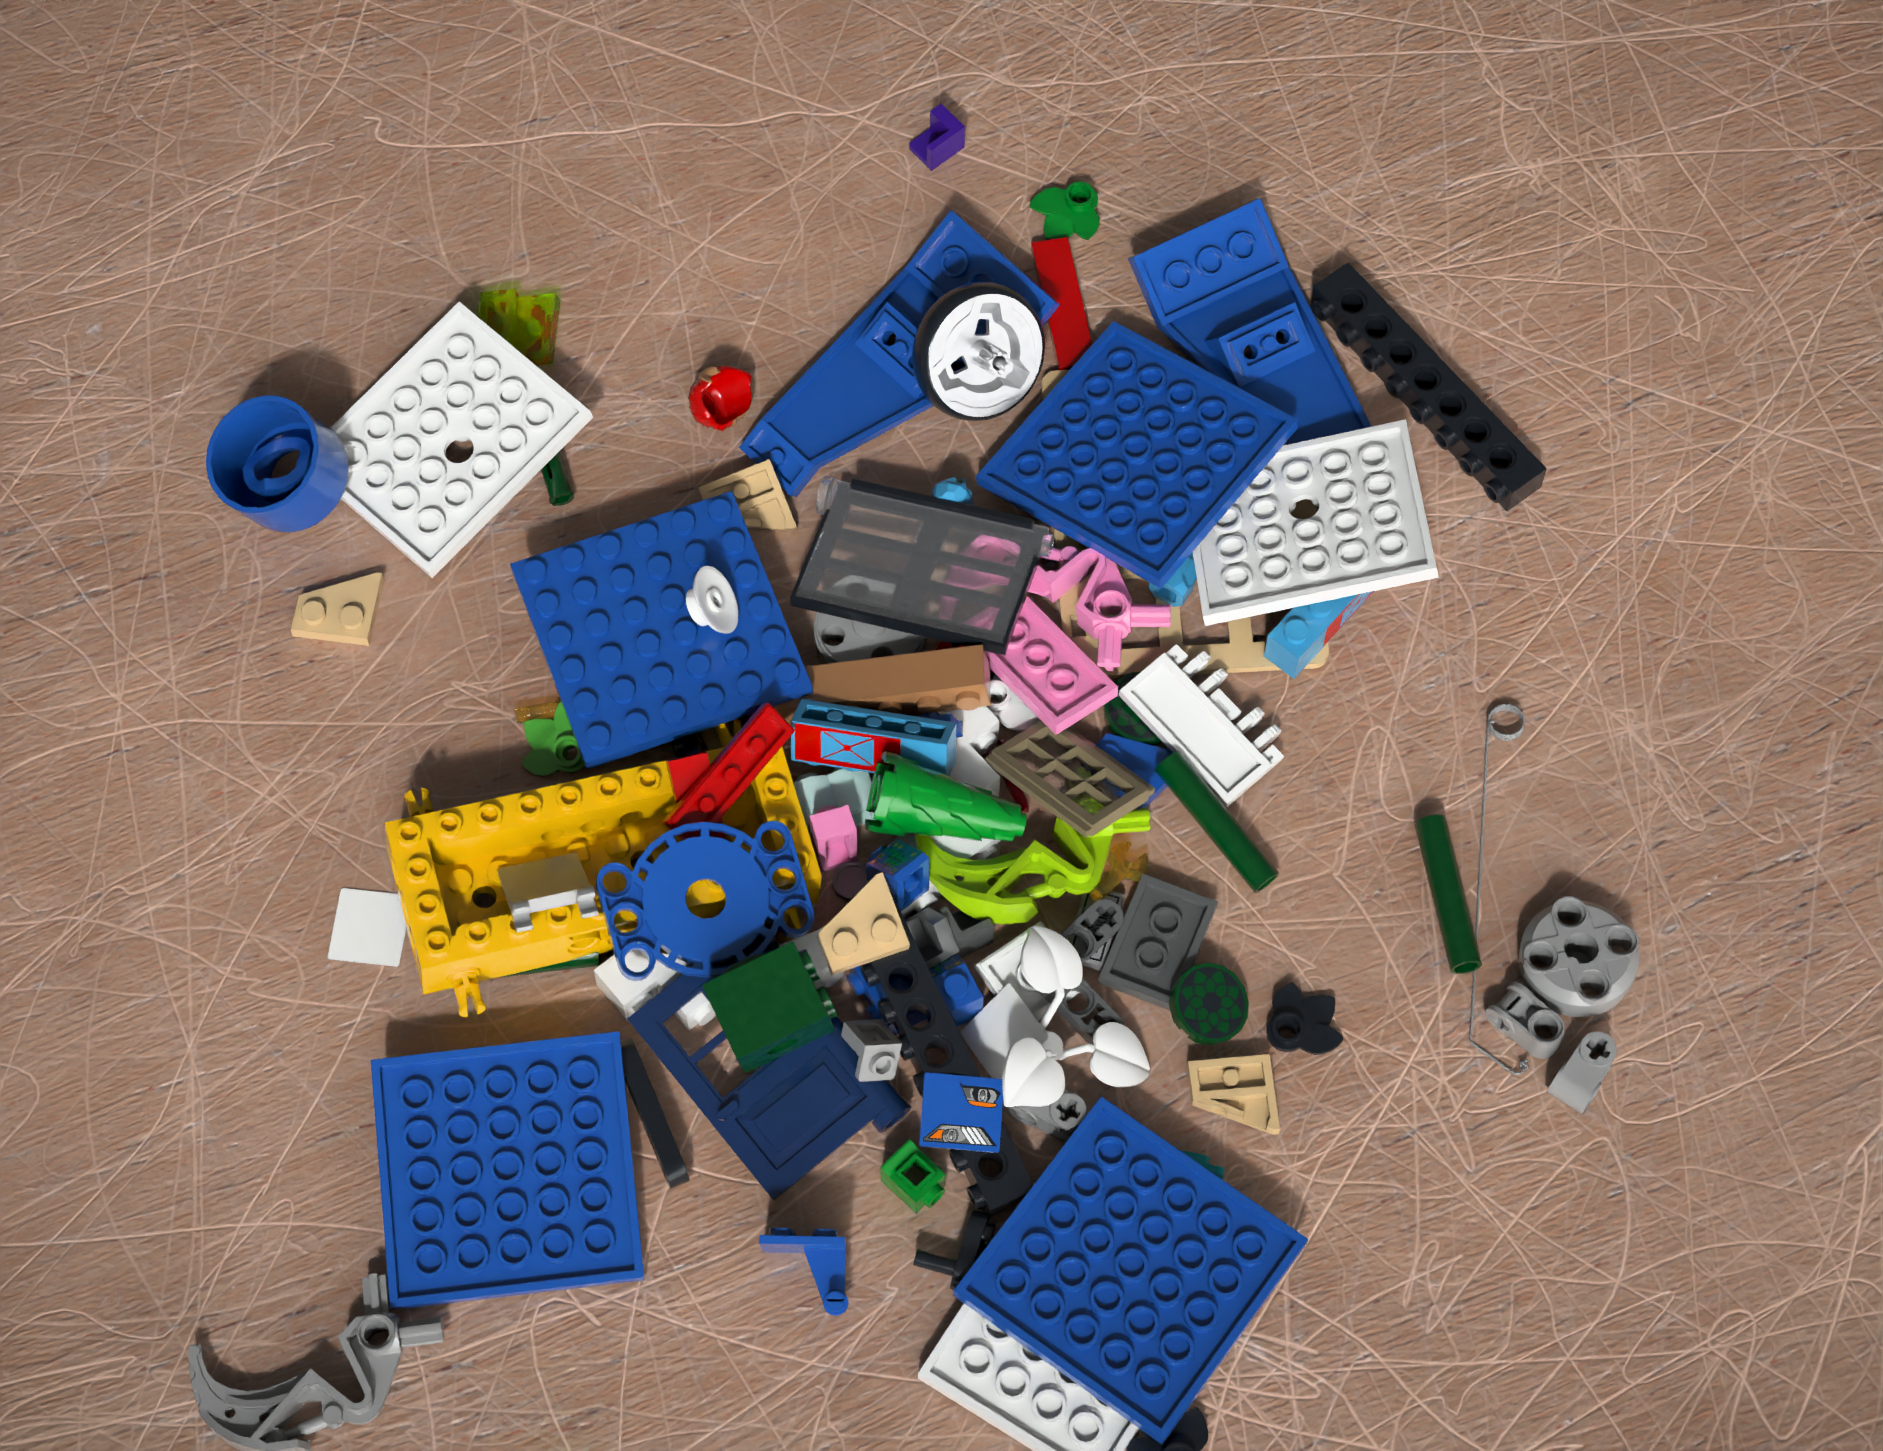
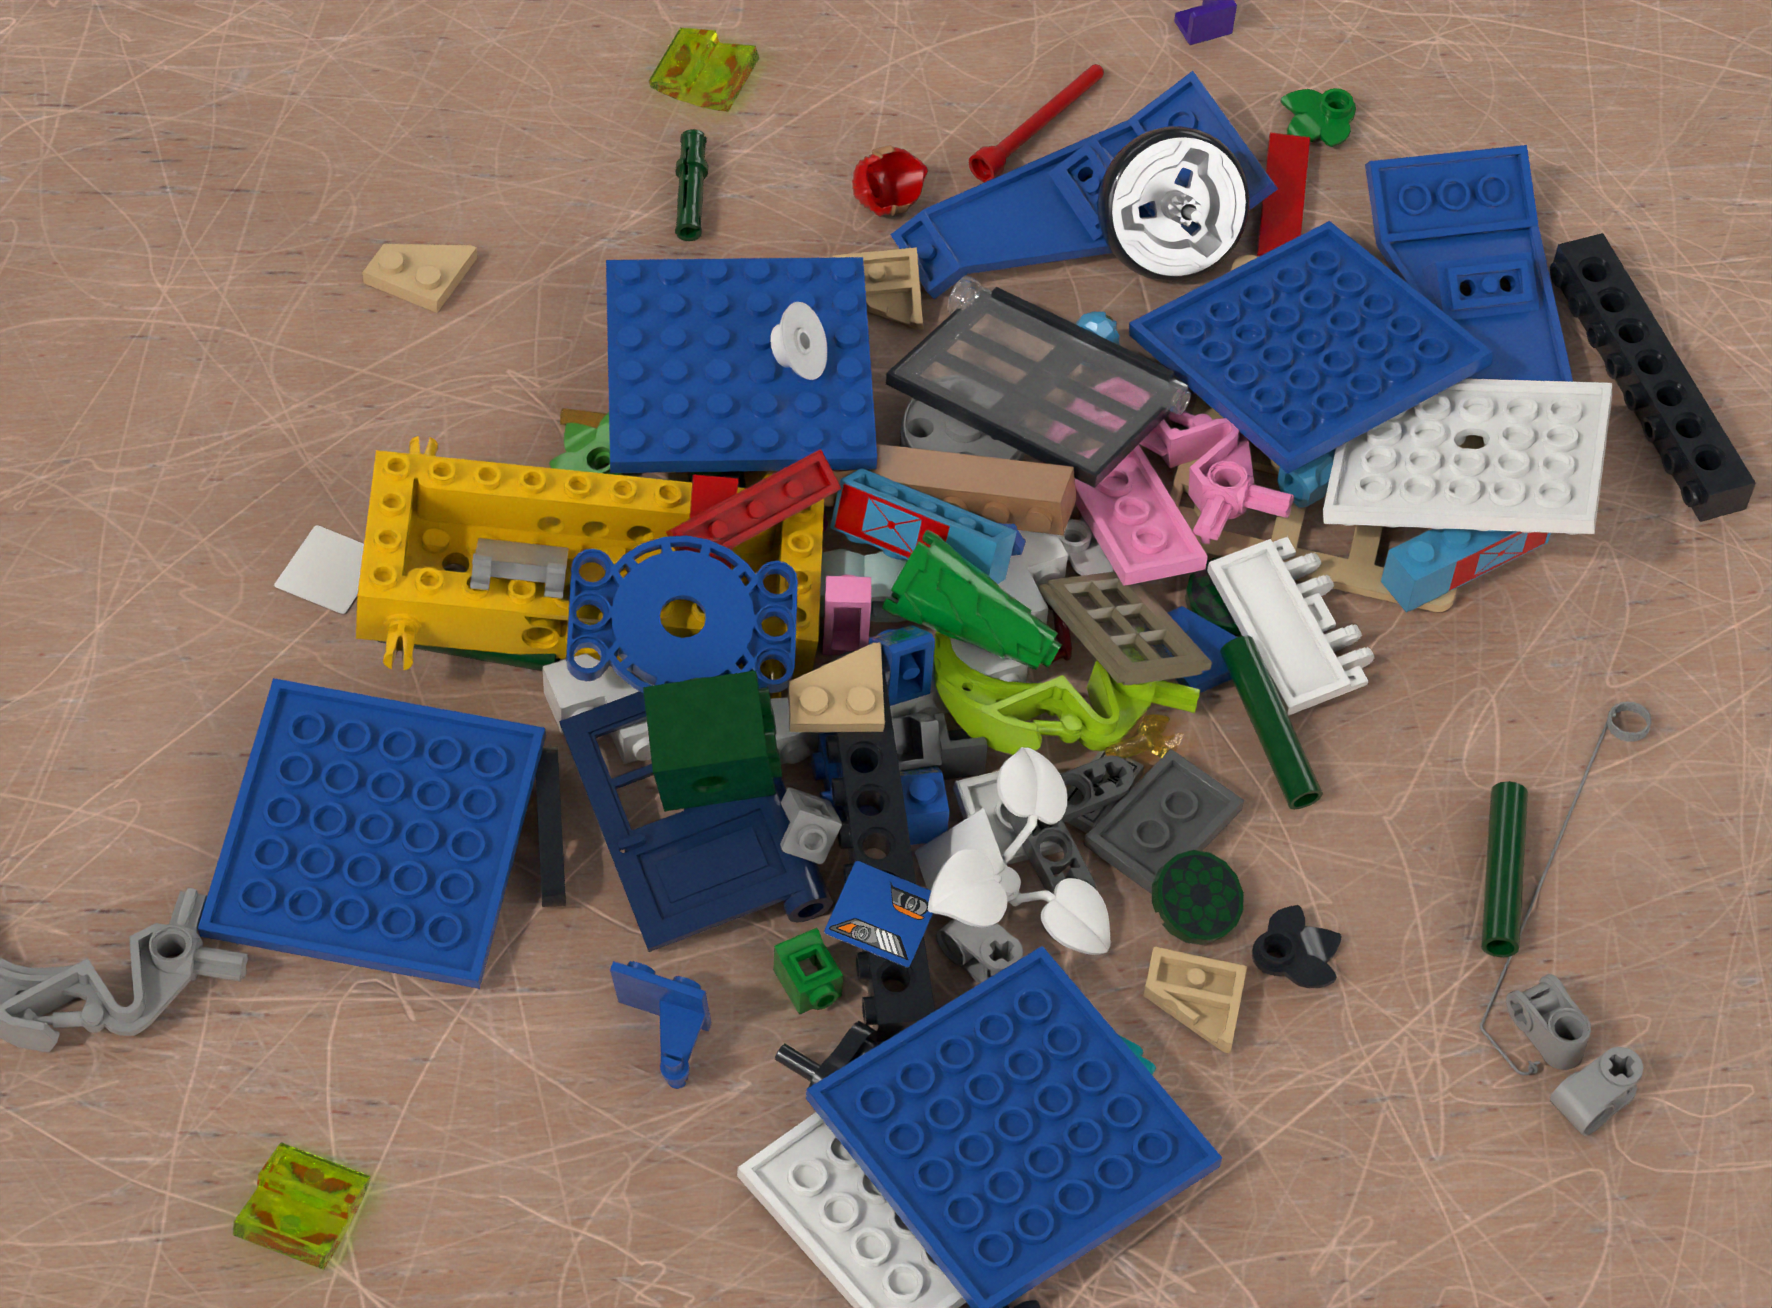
camera: 15 degrees right, 10 degrees down
(250, 445) = (407, 111): blue piece -> none
(448, 388) = (532, 140): white plate -> none
(799, 346) = (990, 161): none -> red piece
(1578, 957) = (1632, 973): light grey piece -> none

